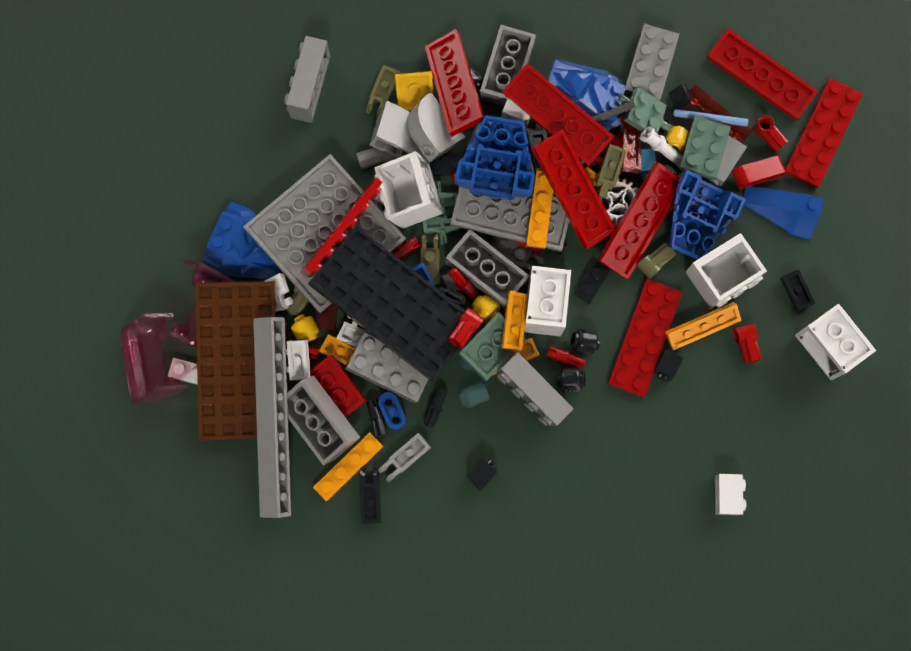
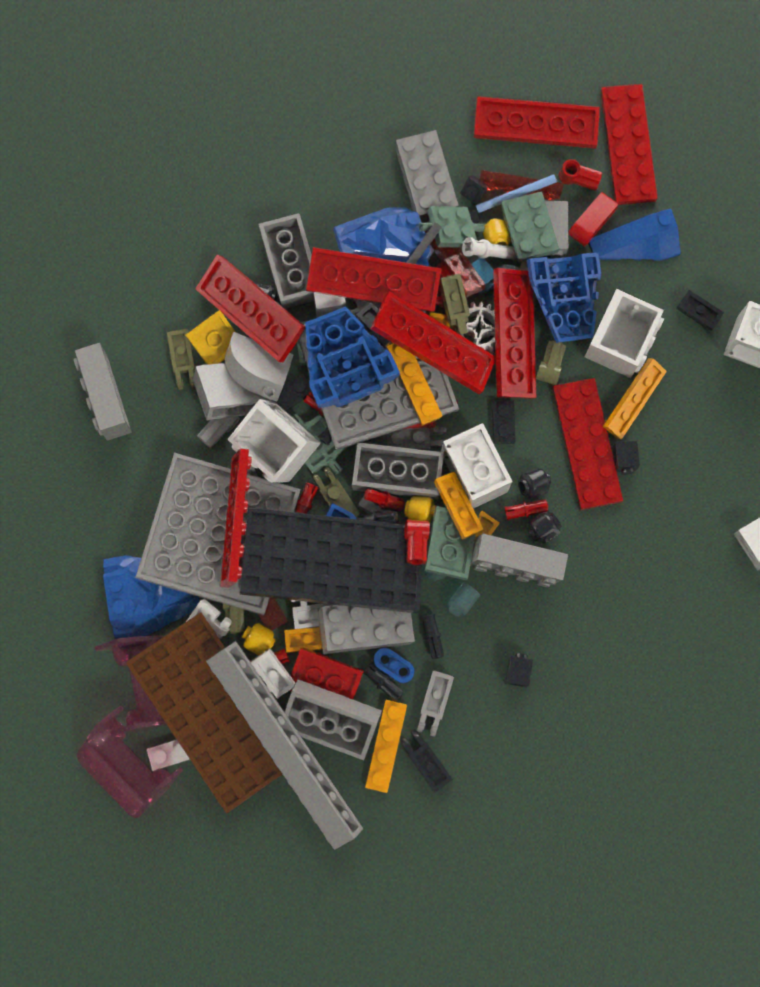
camera: 30 degrees left, 0 degrees up
(747, 338) = (682, 385): red piece -> none

